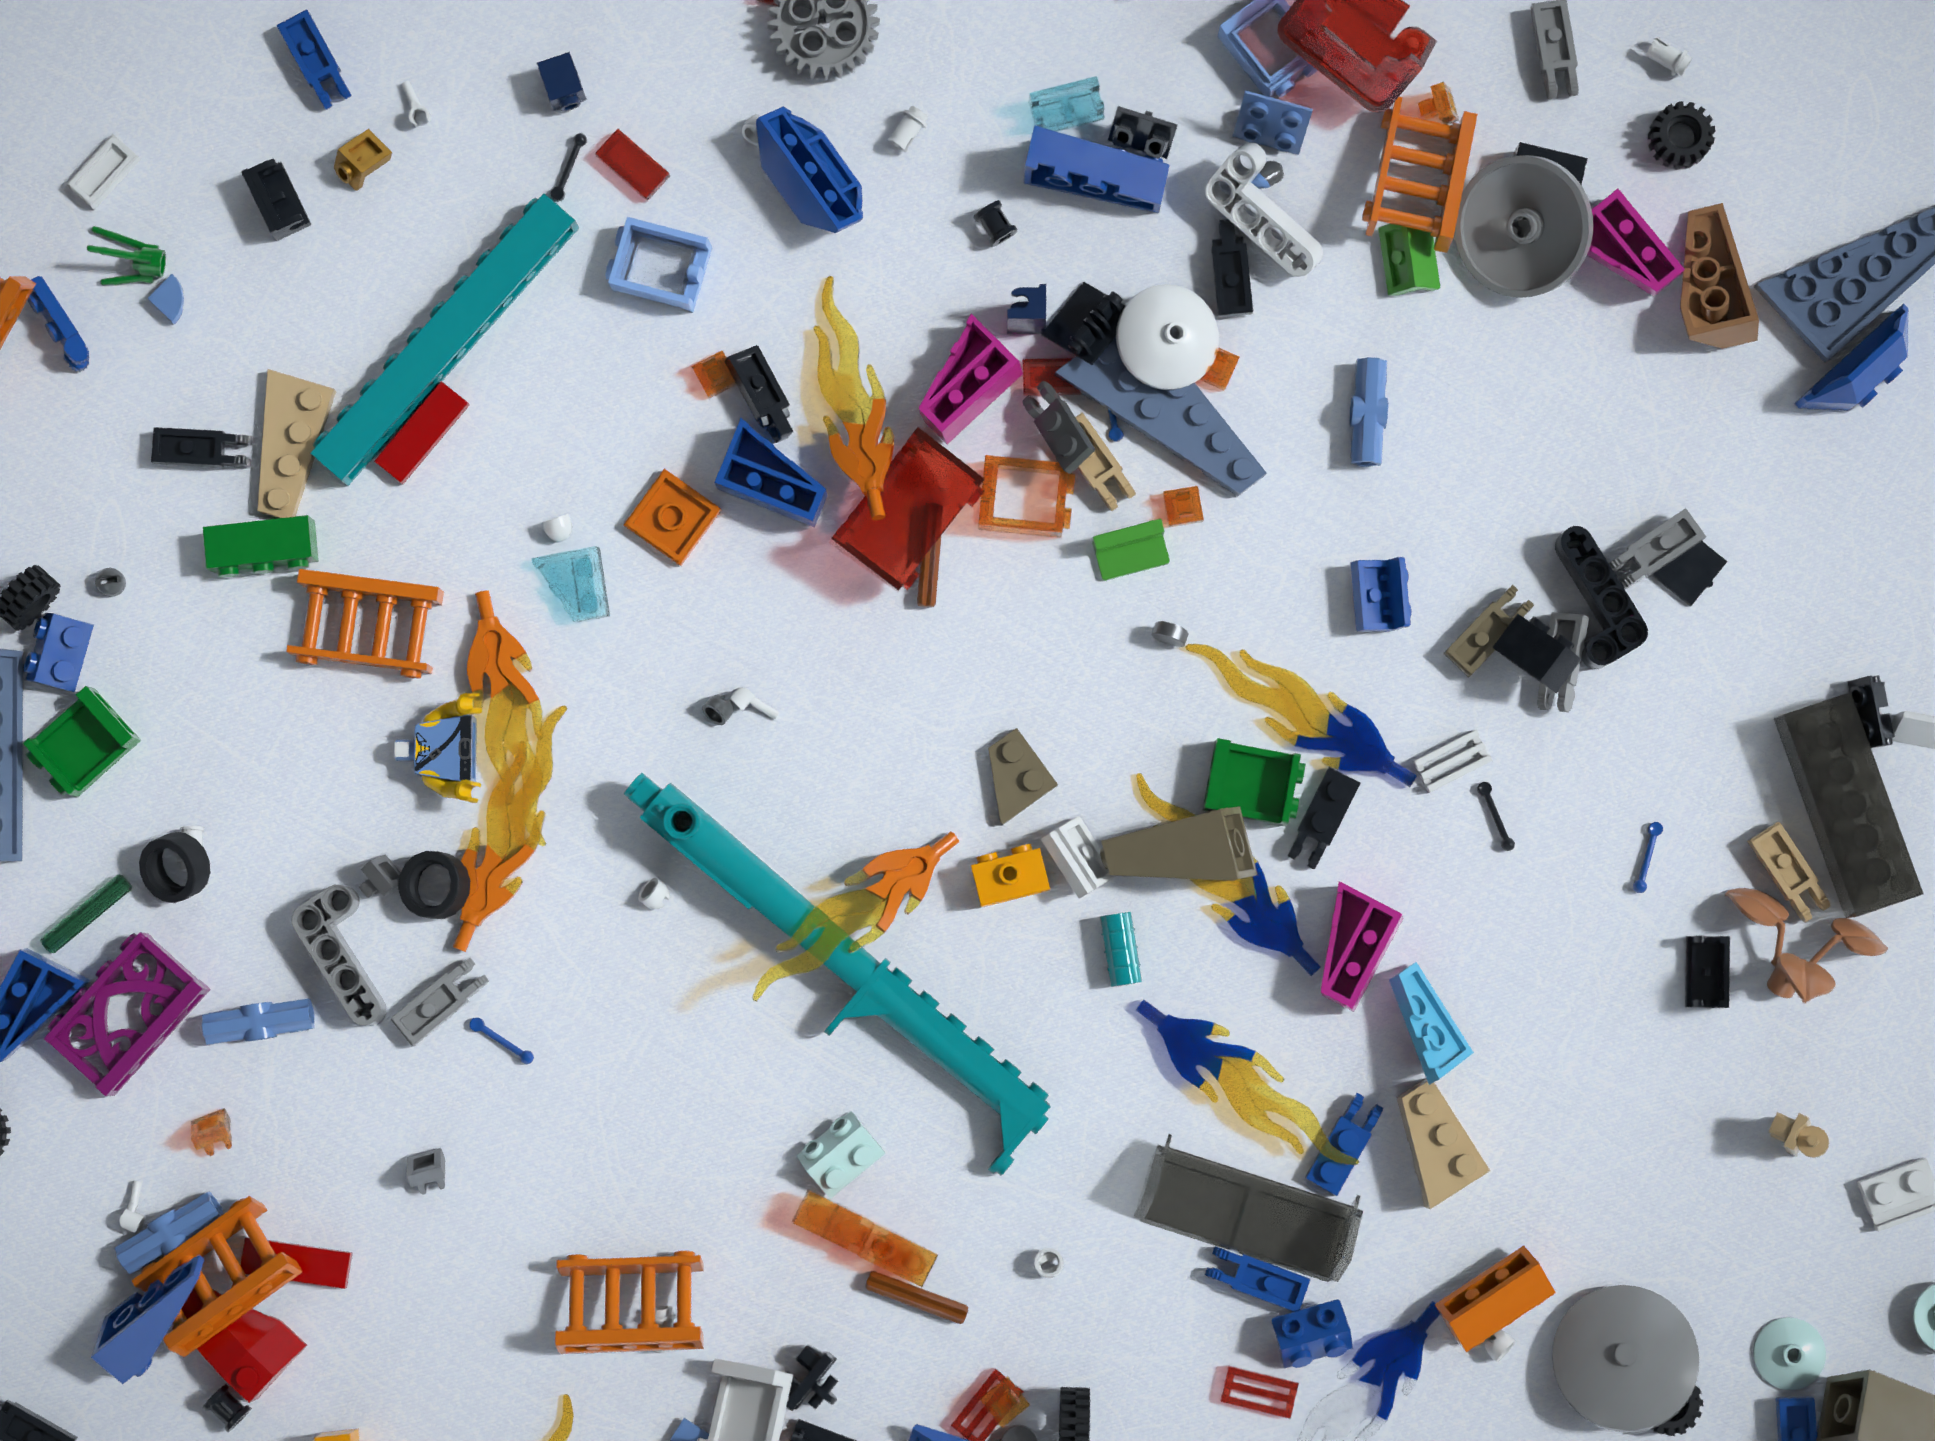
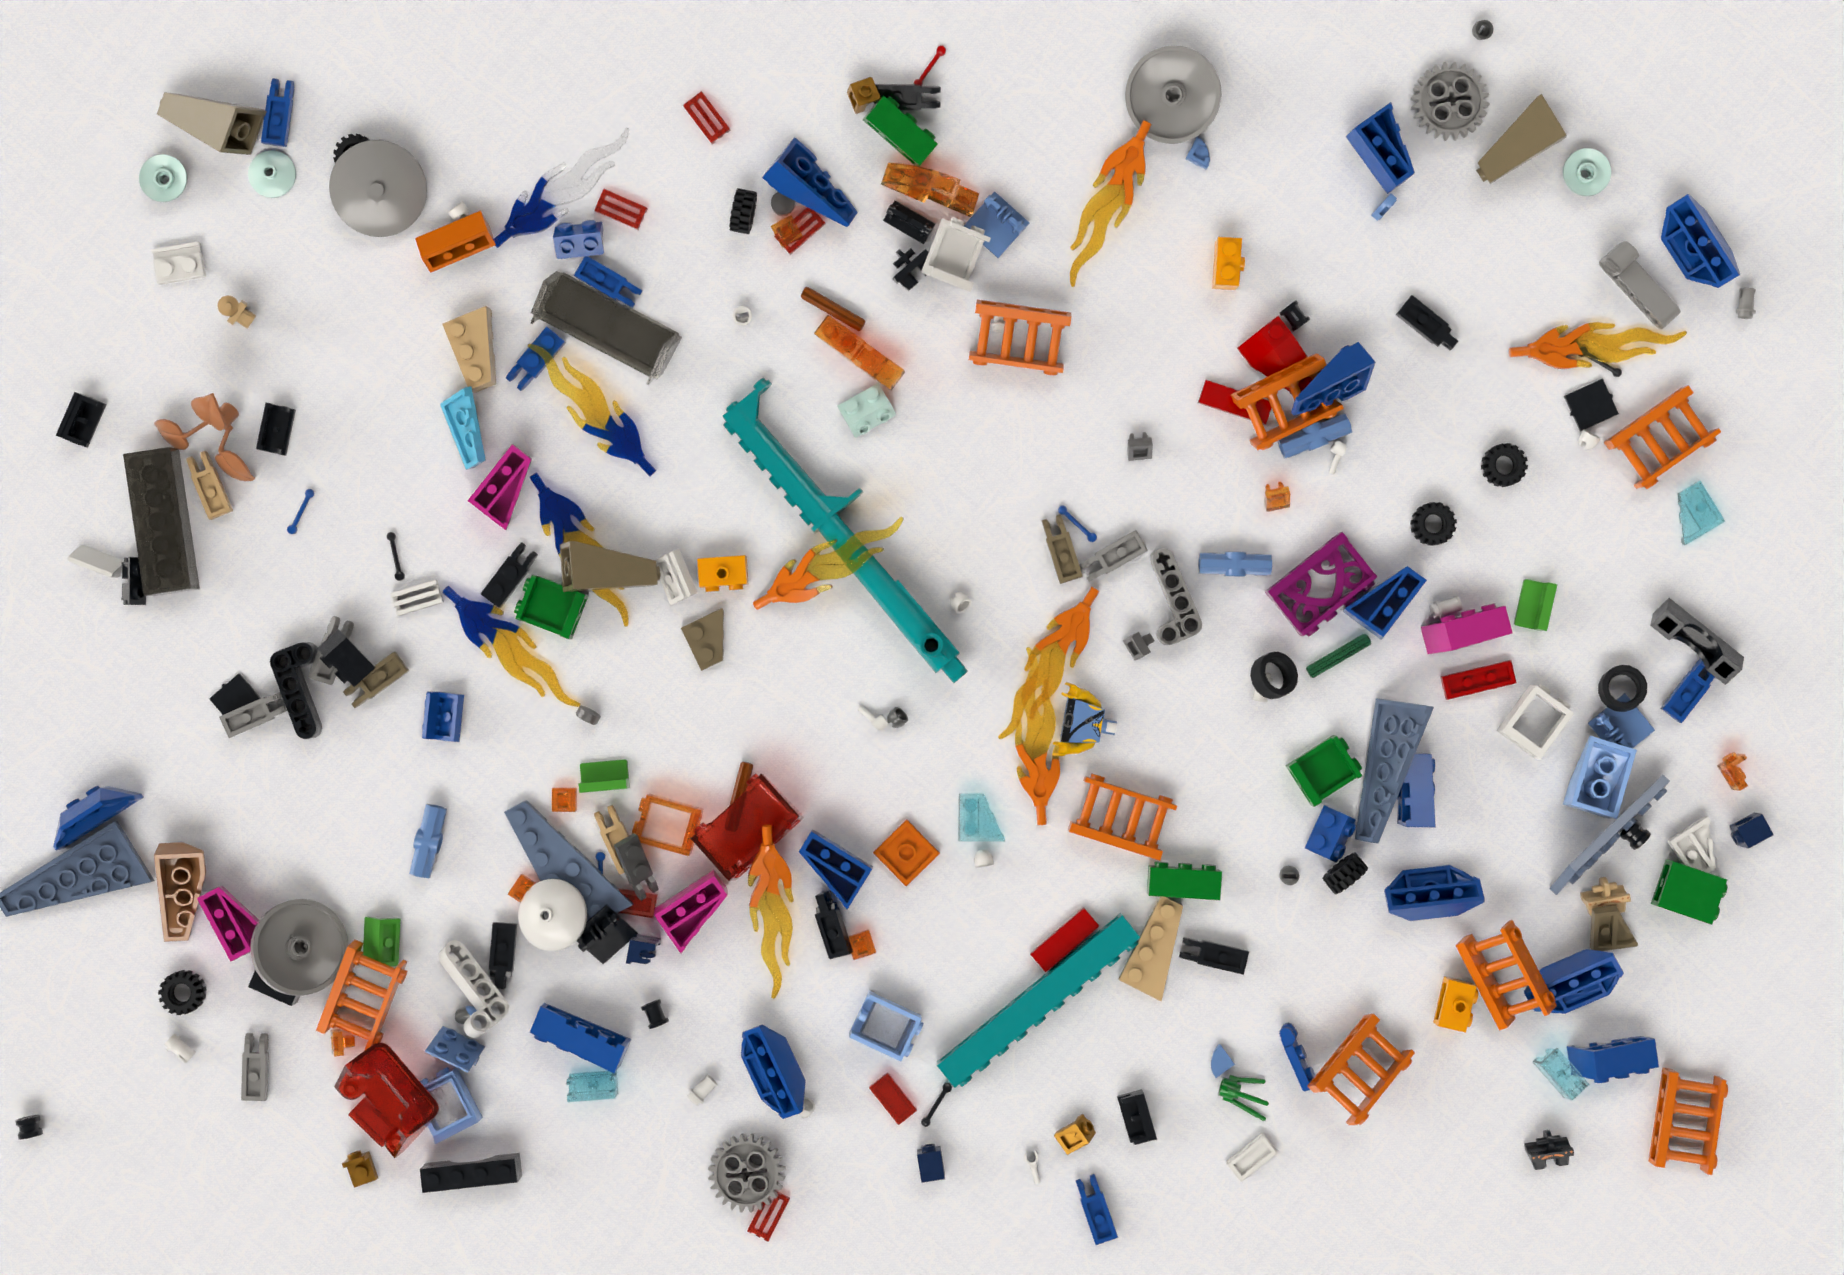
camera: 170 degrees left, 5 degrees up
(410, 878) = (1121, 637): black tyre -> none
(516, 994) = (1062, 552): none -> dark tan hinge
(1121, 949) = (658, 511): teal axle -> none
(1142, 132) = (544, 1058): black hips -> none

